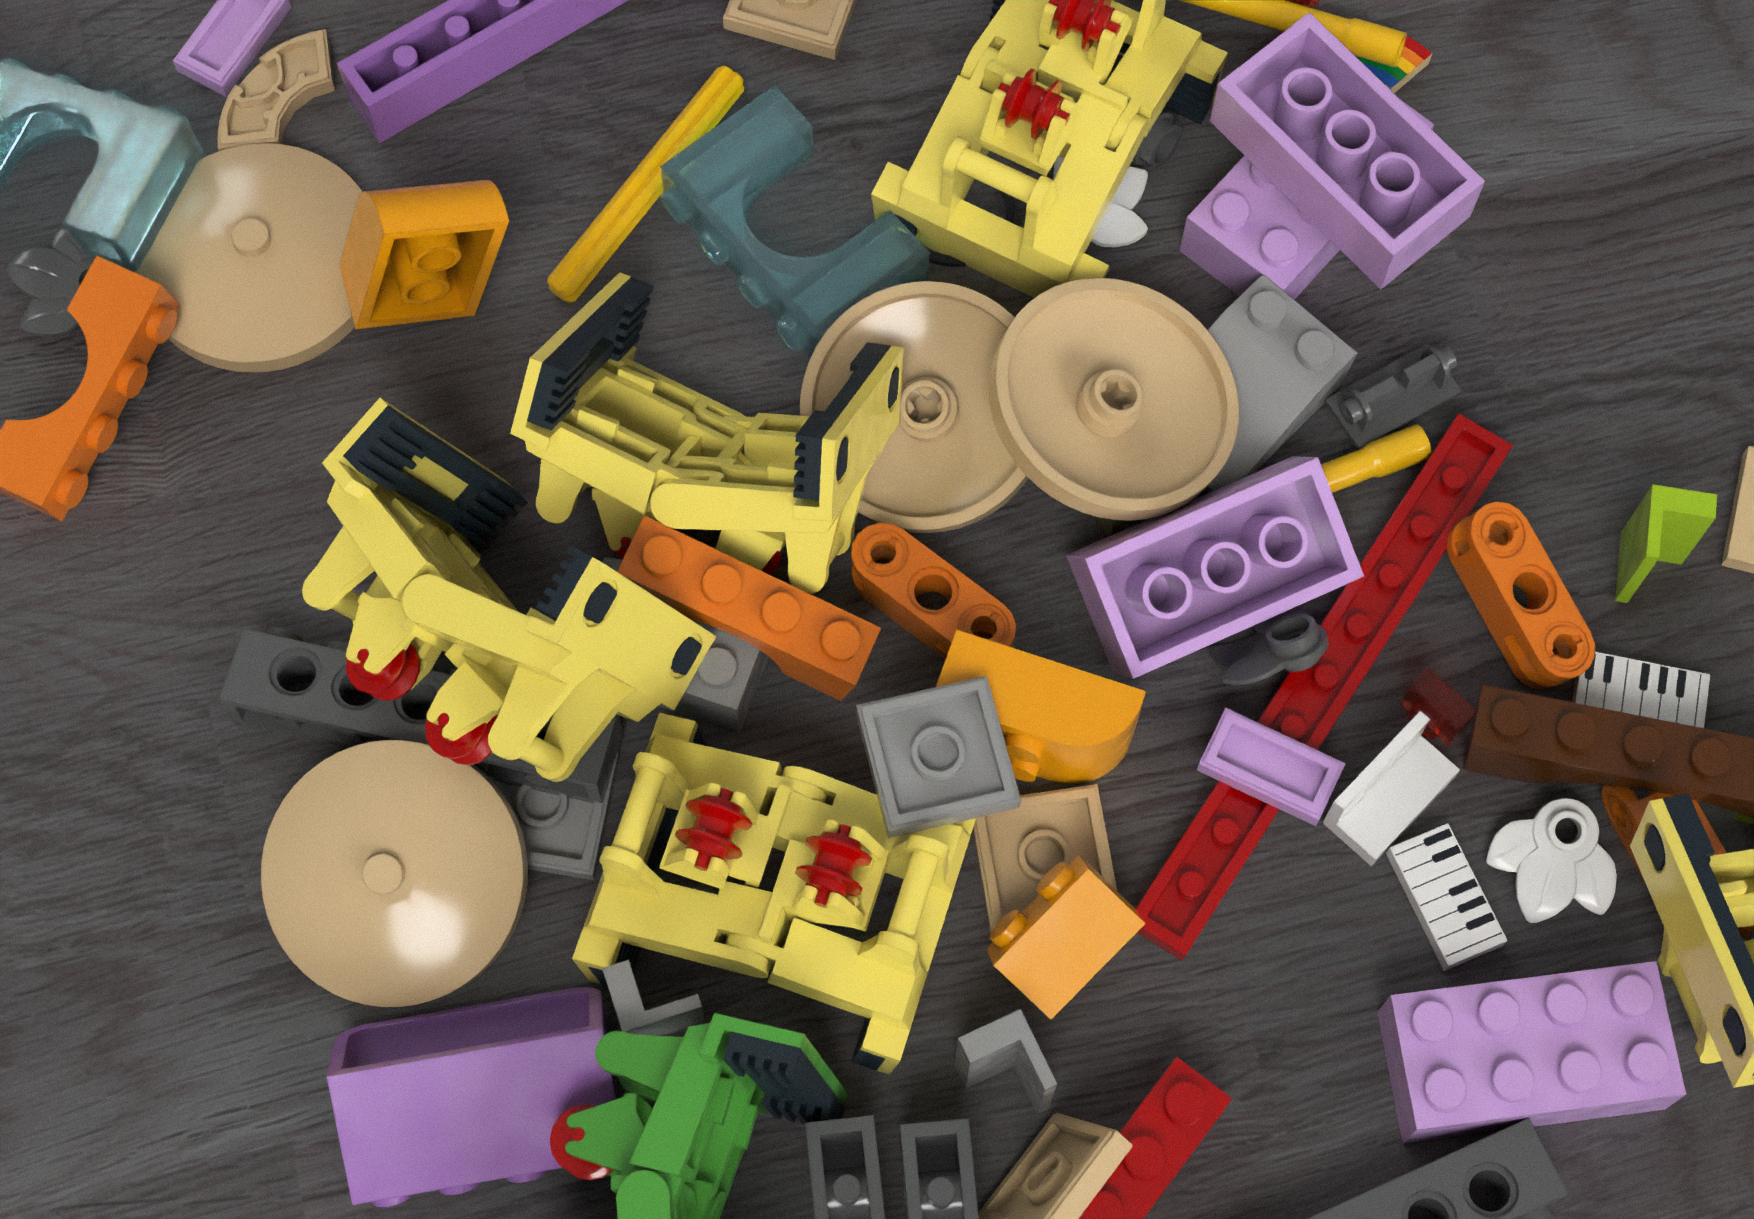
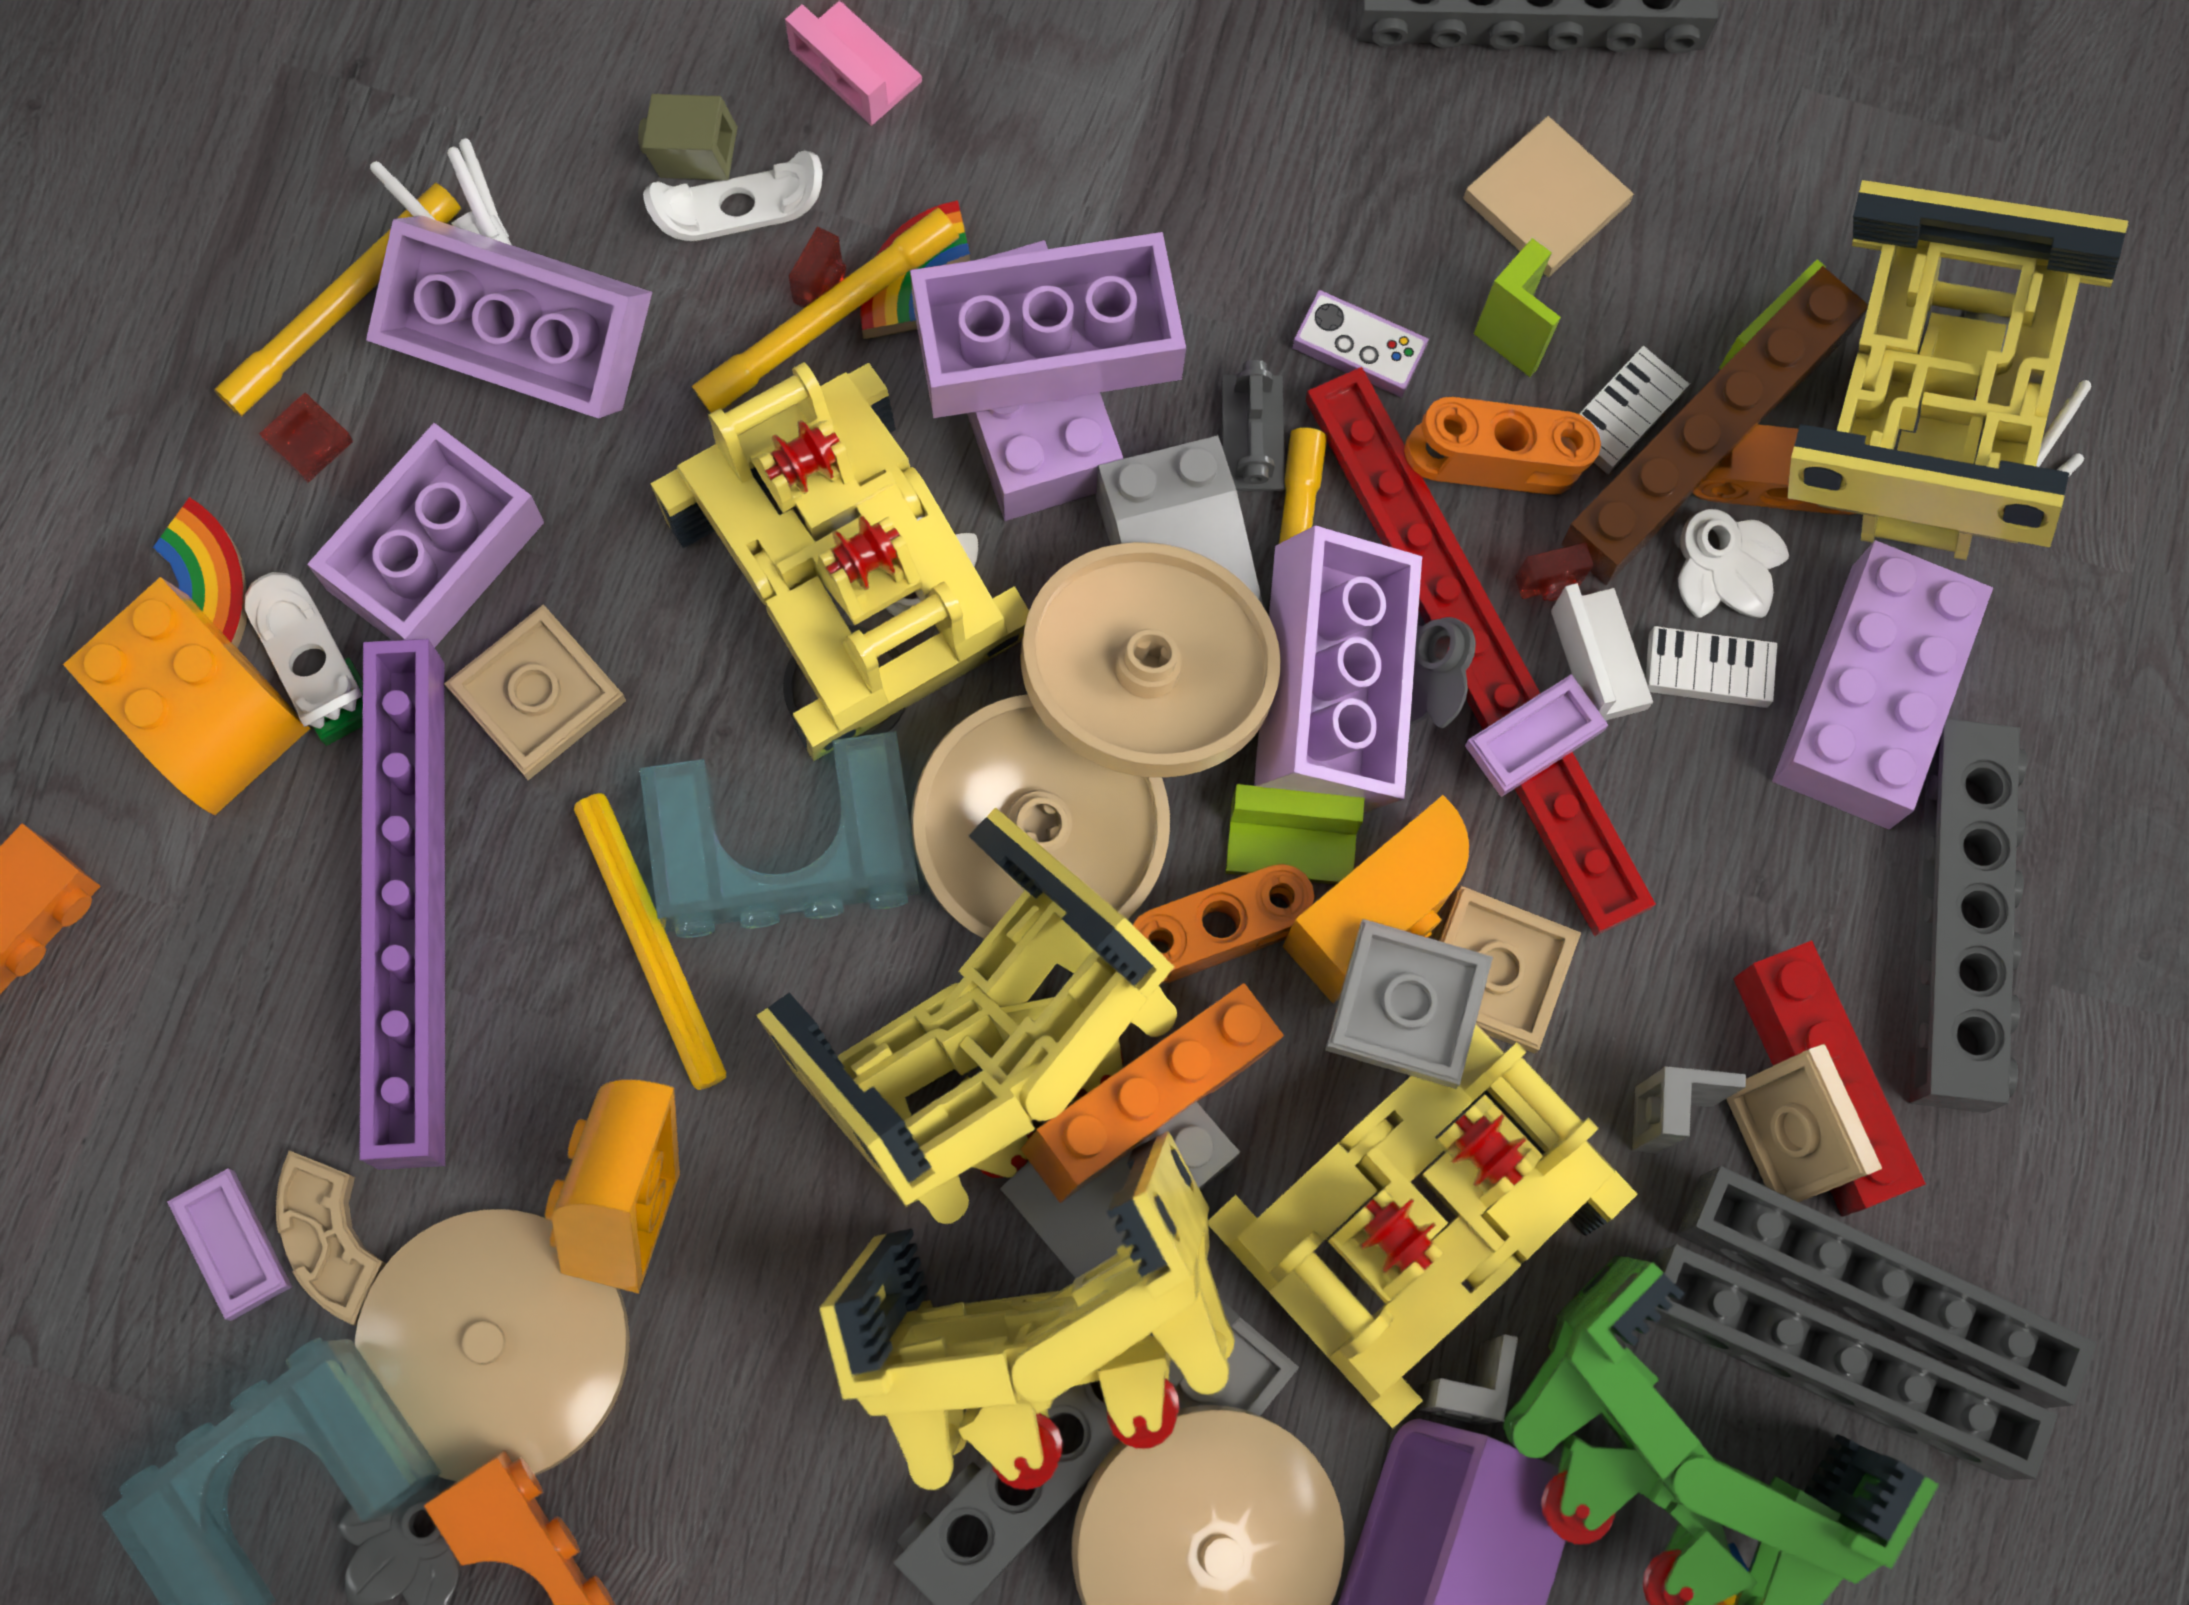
camera: 65 degrees left, 5 degrees up
(1055, 613) = (1295, 830): none -> lime panel
(1063, 935) = (1594, 993): light orange brick -> none
(1542, 439) = (1356, 338): none -> tile

